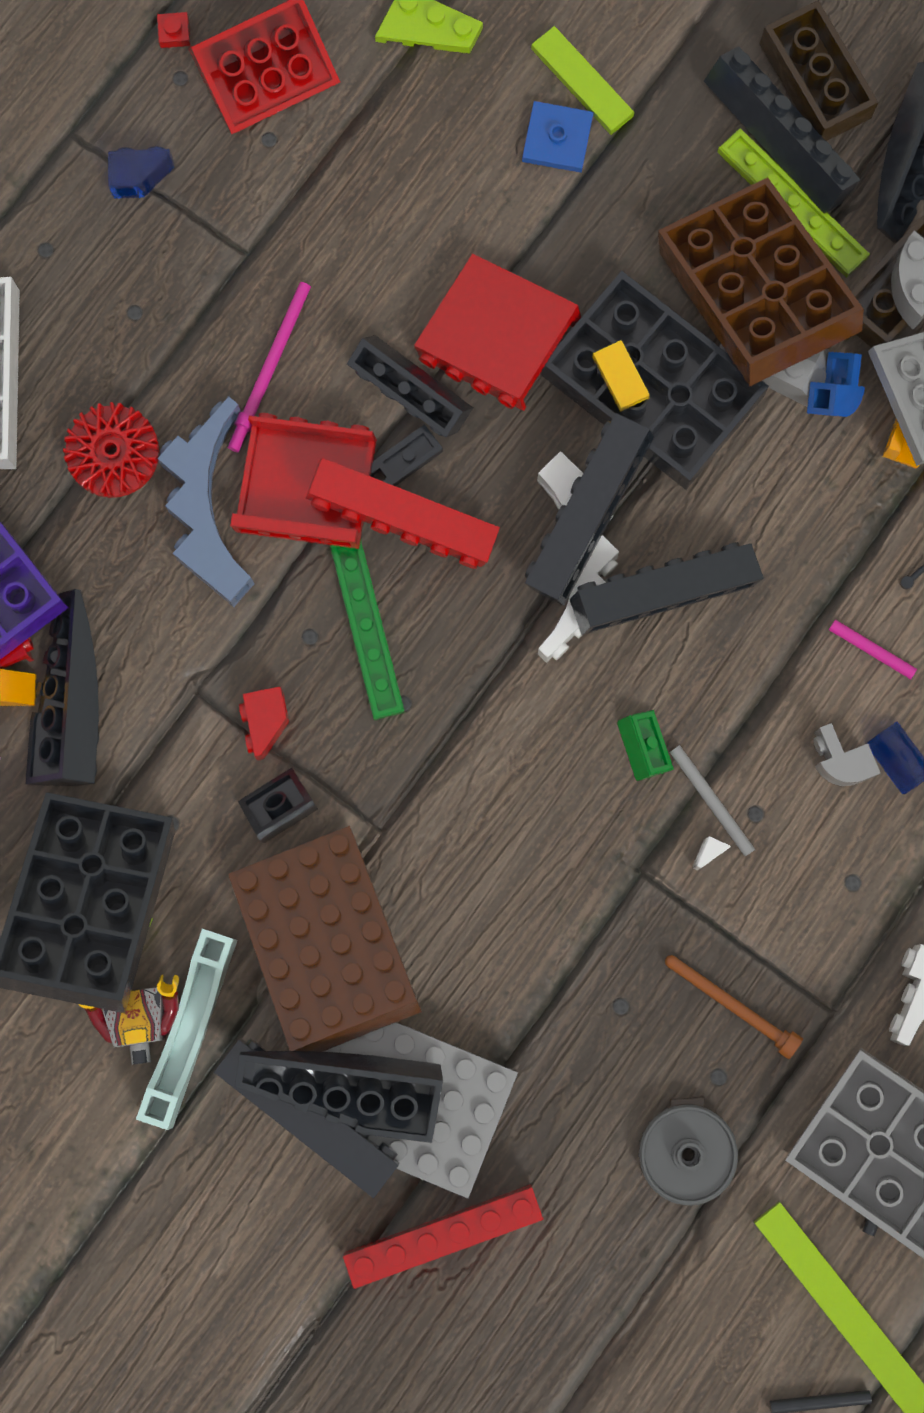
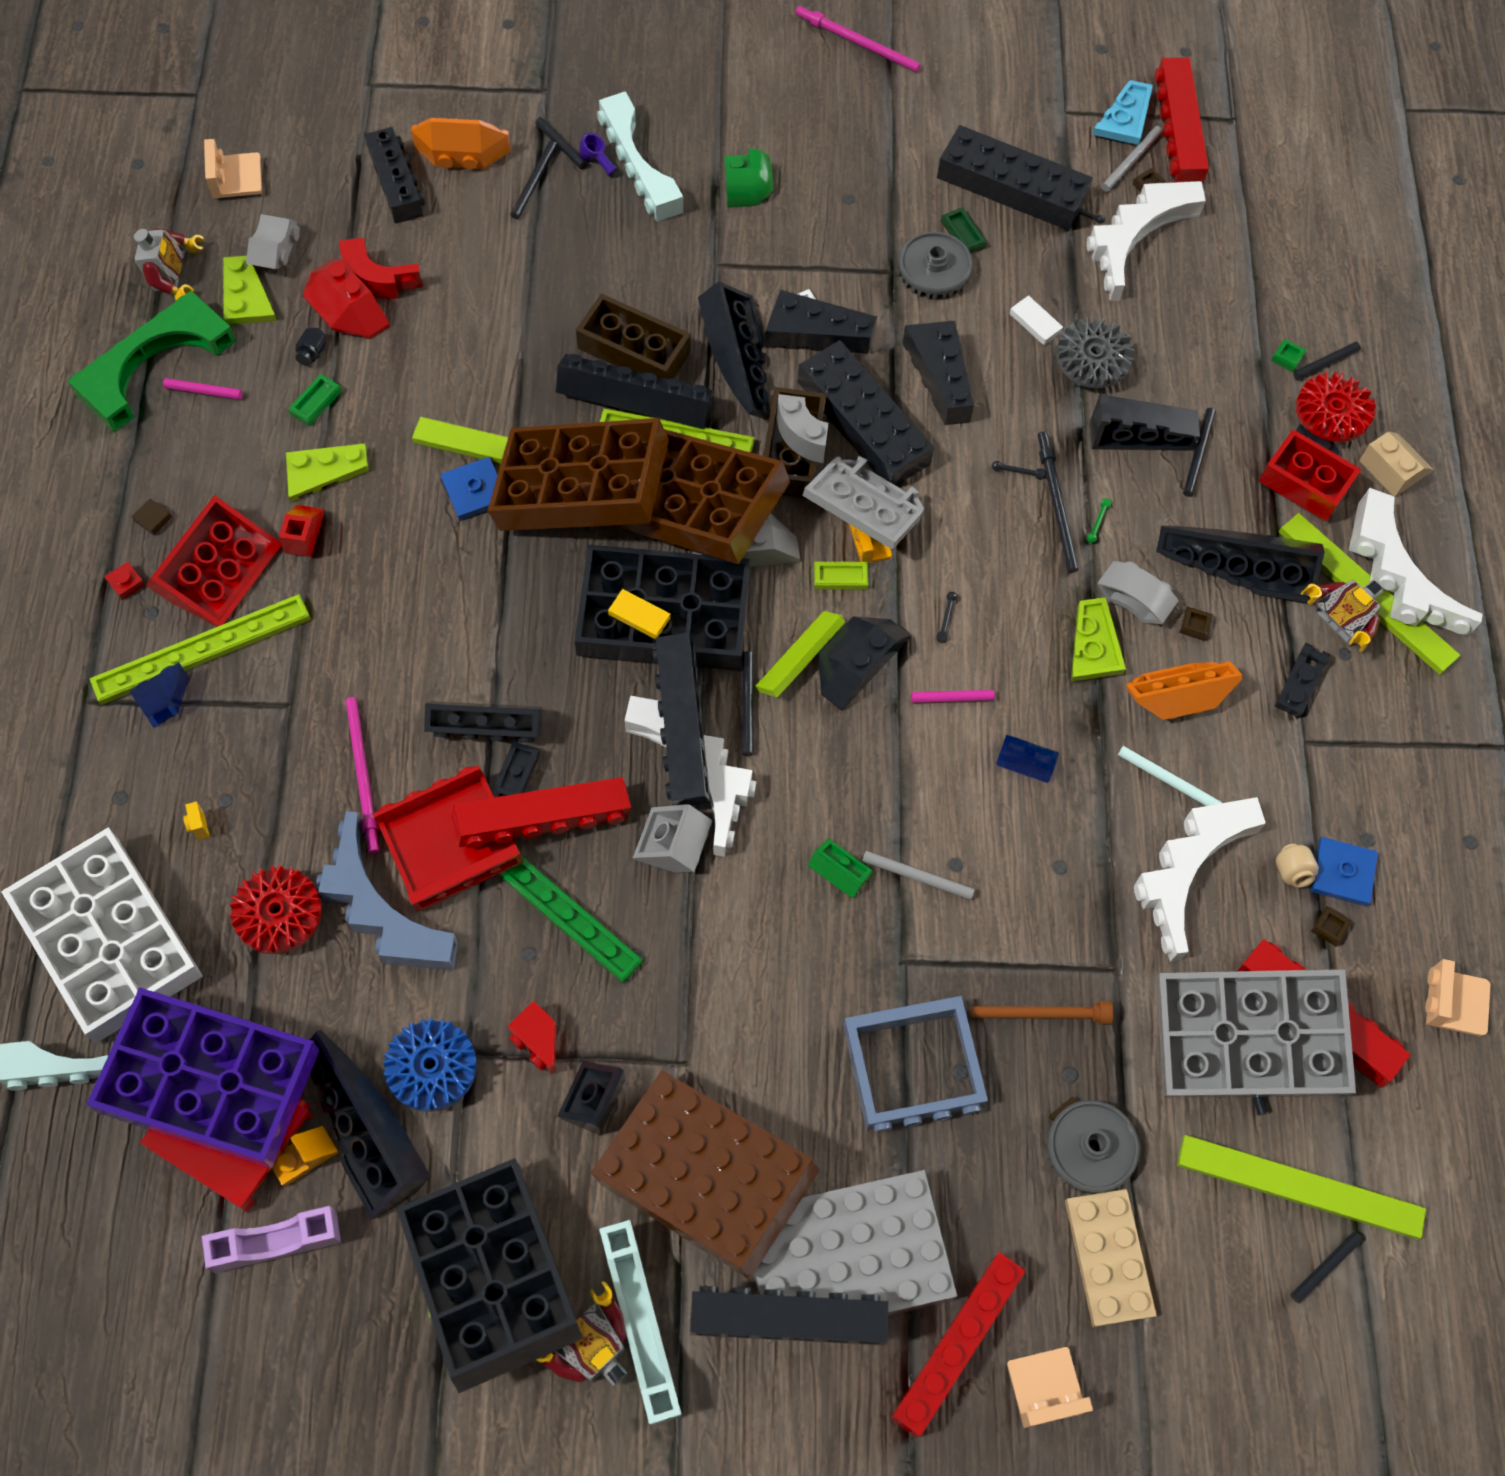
camera: 40 degrees left, 15 degrees down
(95, 317) = (196, 821): none -> yellow plate
(143, 663) = (426, 1043): none -> blue wheel
(203, 145) = (202, 647): none -> lime tile
(359, 1090) = (809, 1267): black wedge -> none
(365, 78) = (301, 530): none -> red slope
(494, 1326) = (1047, 1387): none -> light nougat bracket
(495, 331) = (522, 642): red panel -> none
(508, 615) = (673, 838): none -> light grey slope
(572, 1028) = (905, 1016): none -> sand blue window
(631, 1257) = (1110, 1258): none -> tan plate
(661, 192) = (579, 475): none -> reddish brown brick
(665, 588) = (776, 742): black brick -> none
(673, 523) = (748, 704): none -> black bar
(708, 851) = (942, 911): white slope -> none
(754, 511) = (800, 654): none -> lime tile
(811, 548) = (857, 656): none -> black wedge
(840, 392) = (800, 534): blue brick -> none
(842, 767) = (990, 789): light grey brick -> none
(852, 455) = (840, 575): none -> lime tile

